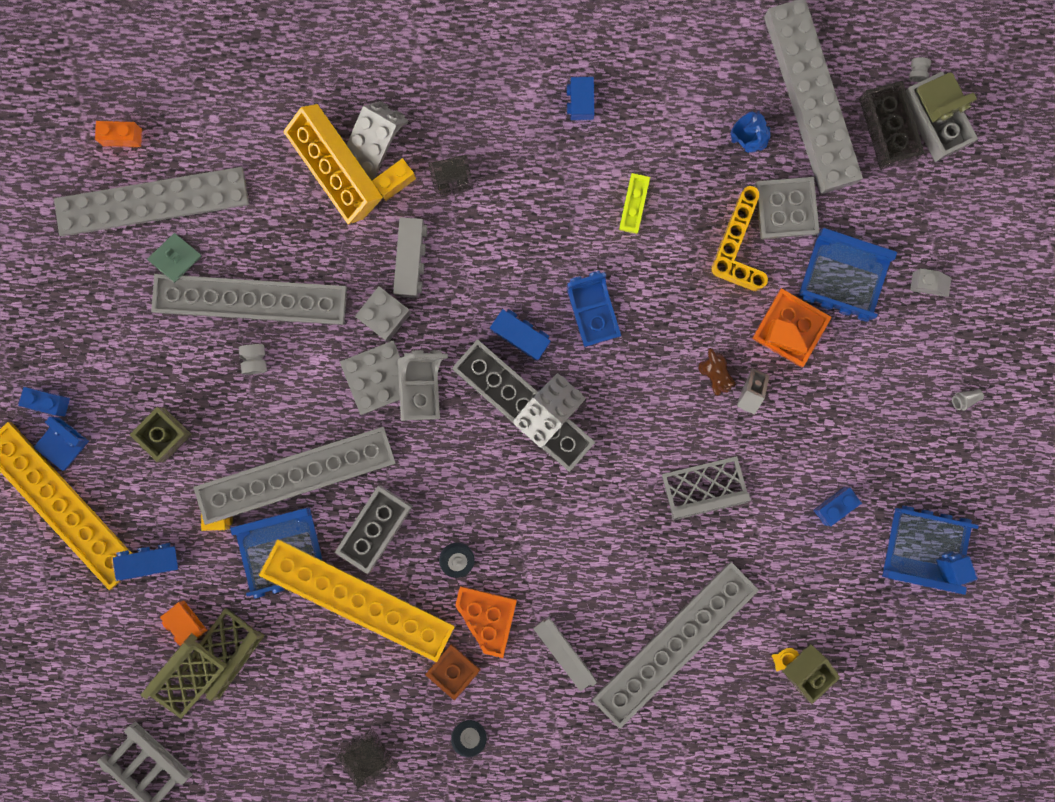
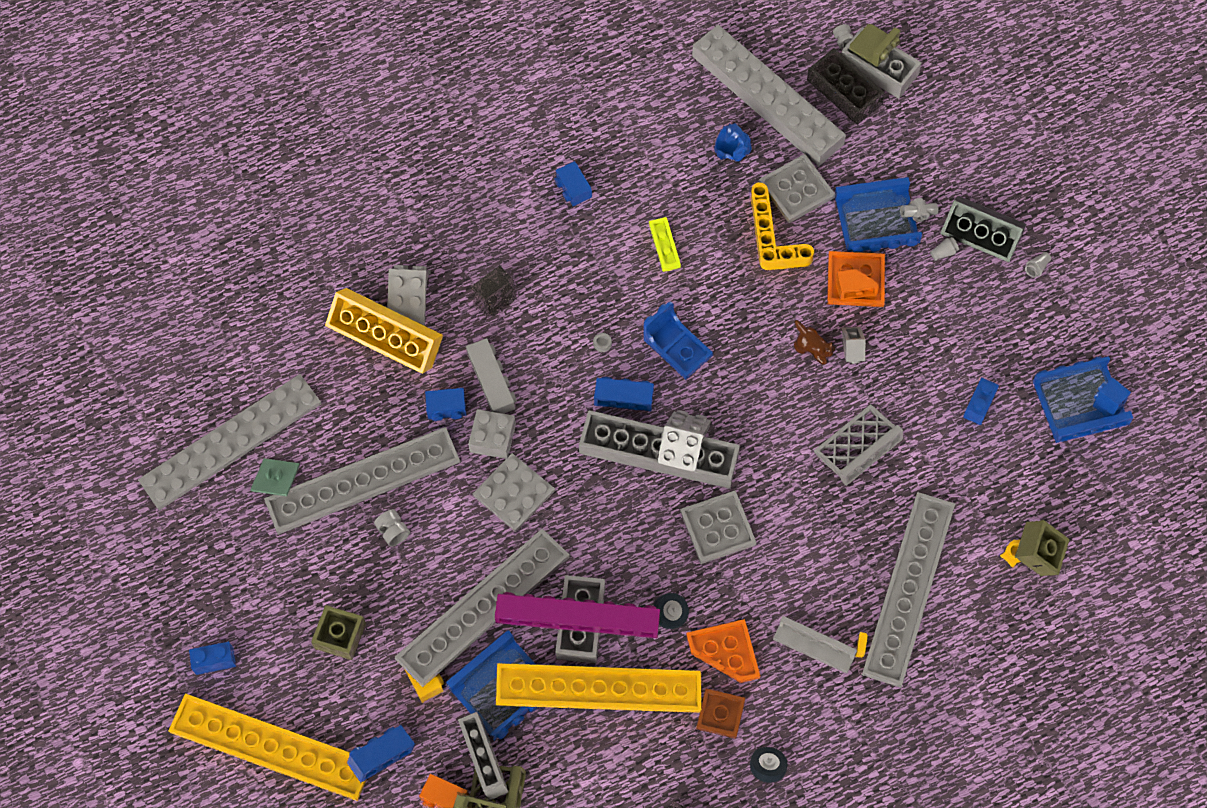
camera: 25 degrees left, 20 degrees down
(60, 443) = (245, 688): blue bracket -> none
(118, 134) = (174, 397): orange brick -> none
(229, 611) = (483, 756): none -> light grey brick
(356, 263) = (445, 404): none -> blue brick
(367, 532) = (577, 615): none -> magenta brick
(394, 179) = (445, 318): yellow brick -> none
(419, 385) = (554, 474): light grey bracket -> none
(527, 272) = (602, 342): none -> light grey tile
(538, 503) = (718, 527): none -> light grey plate
(604, 675) = (861, 644): none -> yellow tile
(888, 289) = (919, 210): none -> light grey axle
(890, 340) = (944, 249): none -> light grey cone
(930, 282) = (950, 187): light grey slope -> none
(938, 338) = (983, 228): none -> pearl dark grey slope

